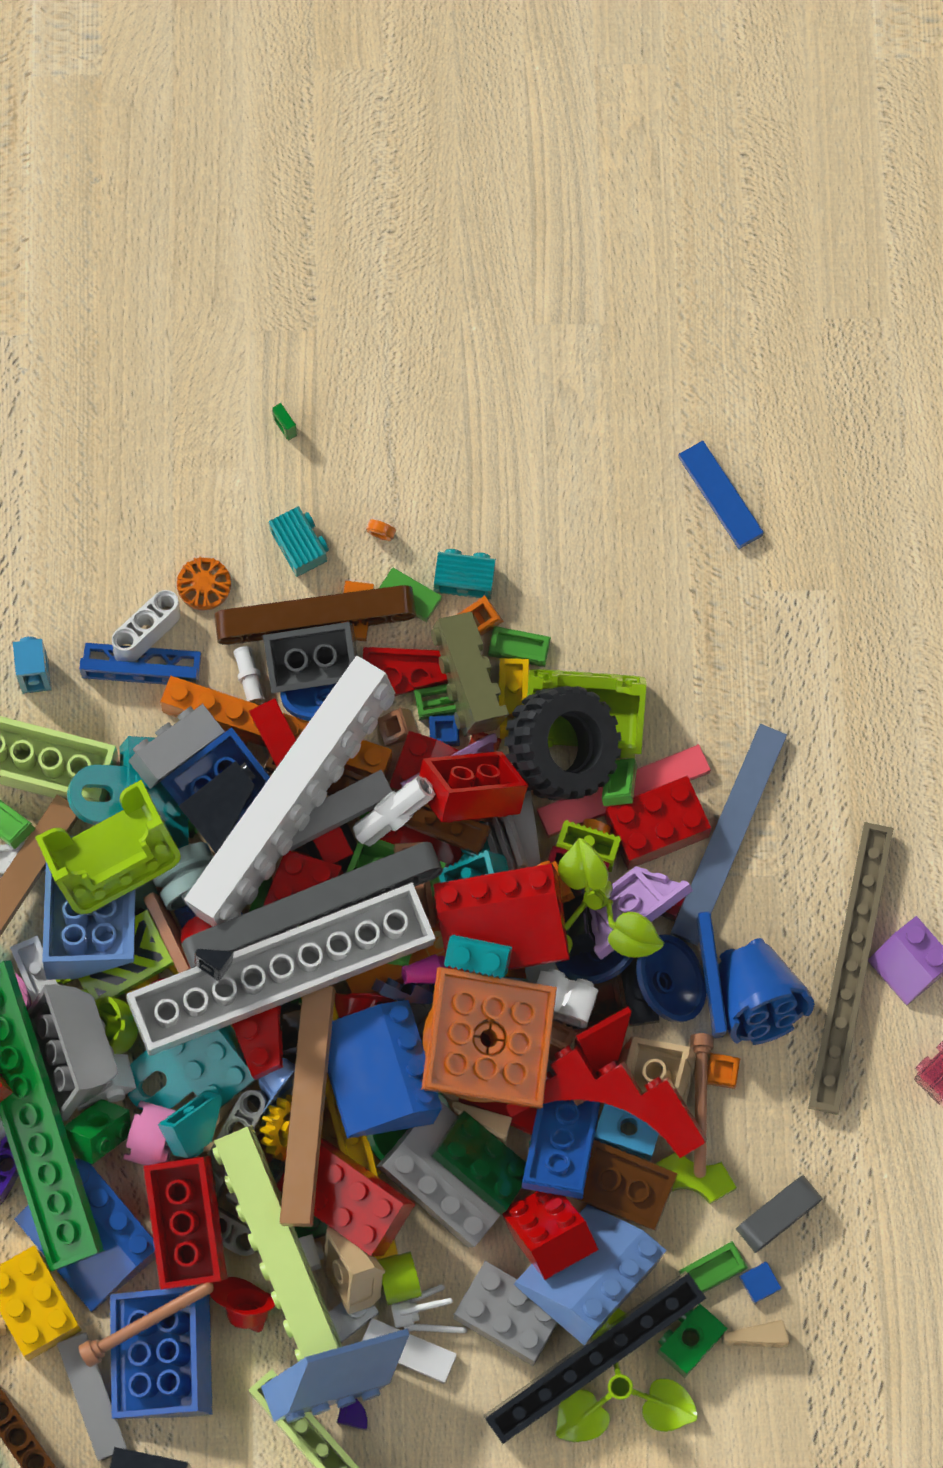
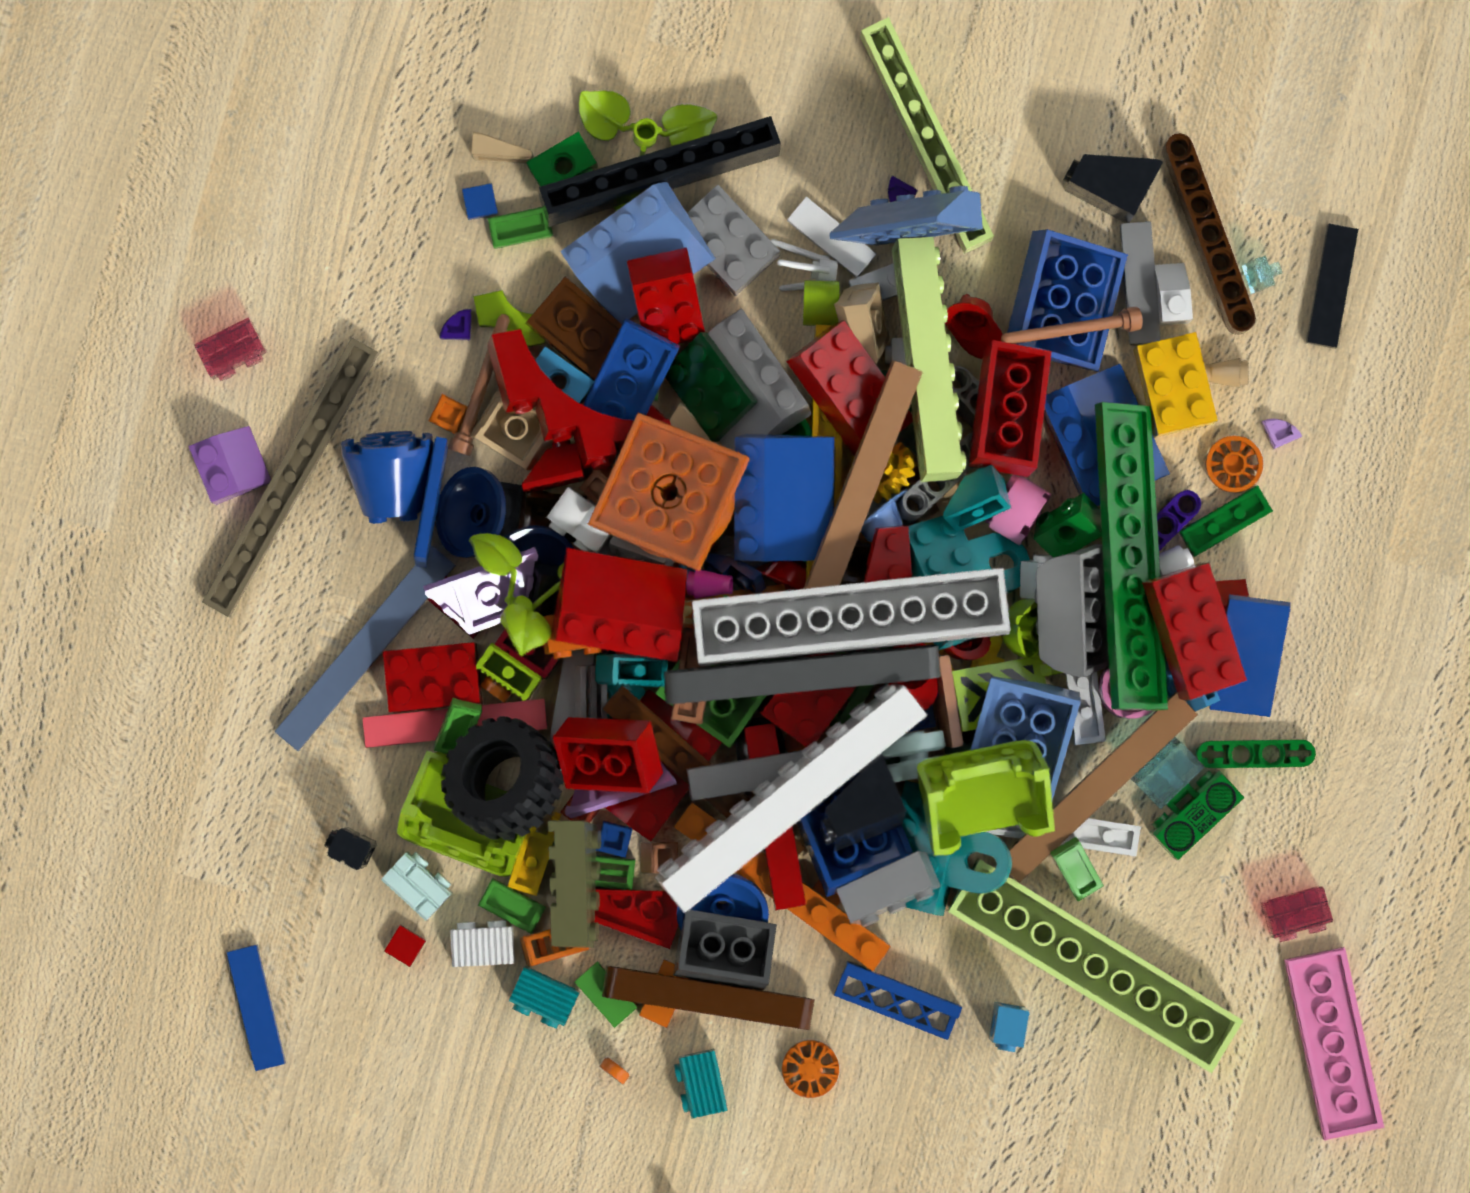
camera: 160 degrees left, 15 degrees up
(56, 1393) = (1173, 294): none -> white slope
(151, 615) = (890, 1022): white beam -> none
(213, 962) = (917, 627): black slope -> none
(249, 675) = (792, 954): white pin -> none
(393, 811) = (692, 750): white piece -> none
(478, 956) = (655, 572): teal brick -> none
(534, 602) = (482, 945): none -> white brick
(604, 584) = (405, 945): none -> red tile
(610, 637) = (417, 884): none -> light aqua brick
(682, 648) = (350, 847): none -> black brick
(741, 1156) = (458, 326): none -> dark purple tile
(779, 1213) = (440, 259): dark grey beam -> none

